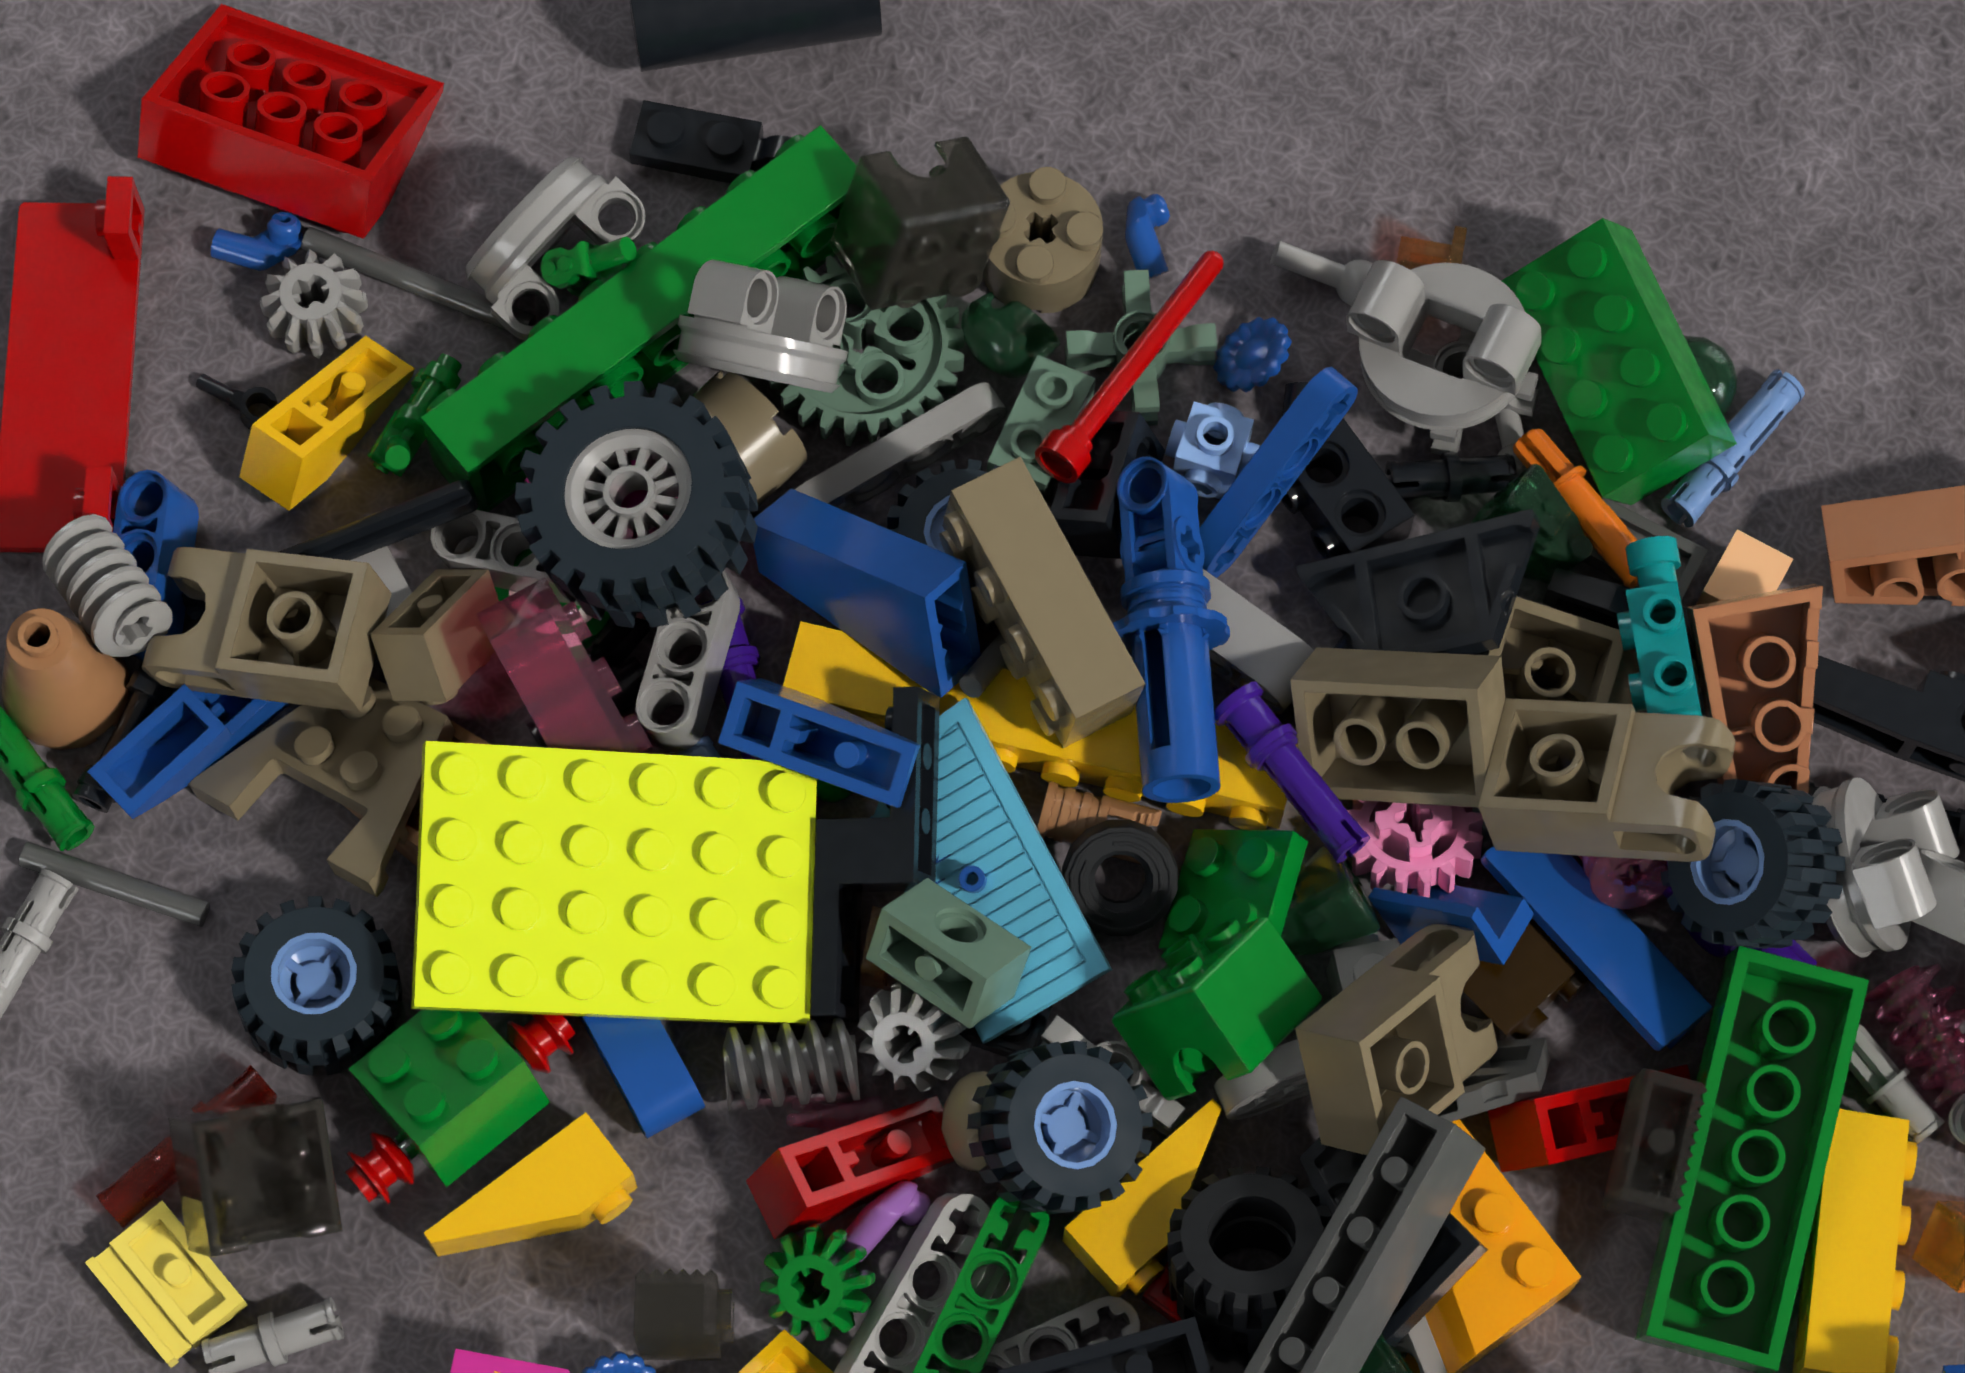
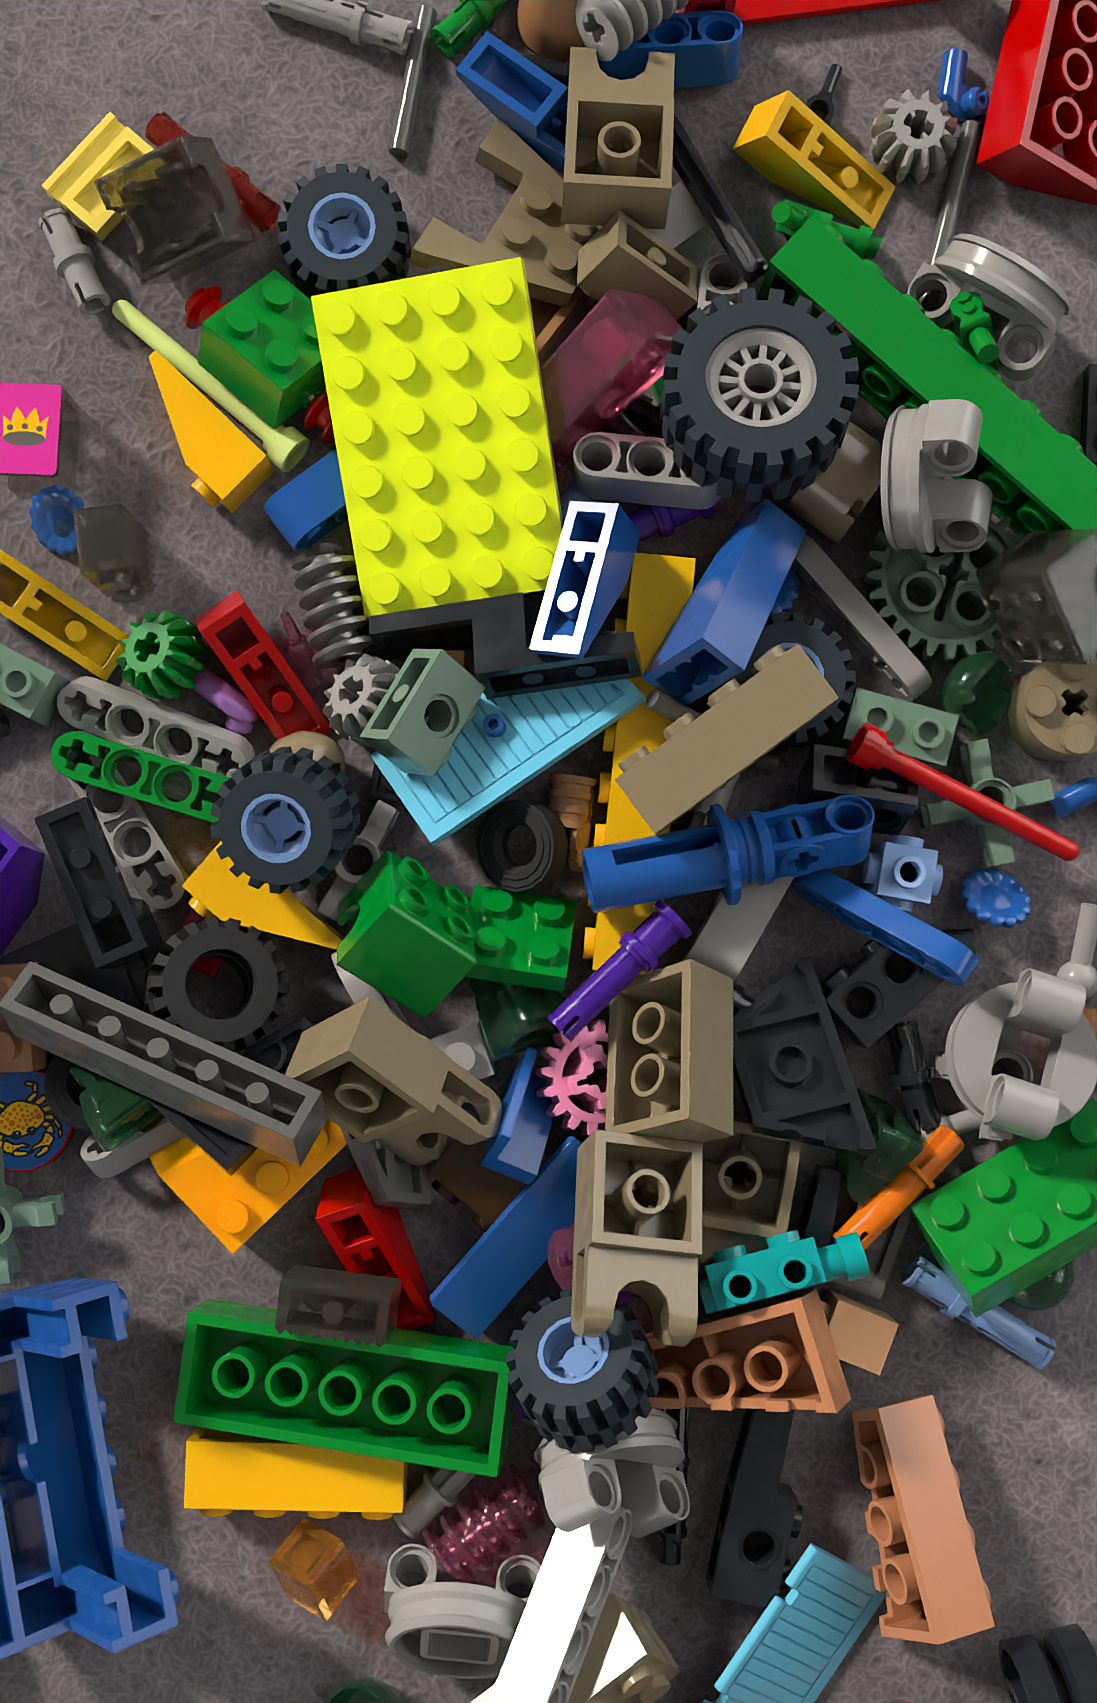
camera: 80 degrees right, 15 degrees up
(566, 1104) = (283, 445): none -> yellowish green piece

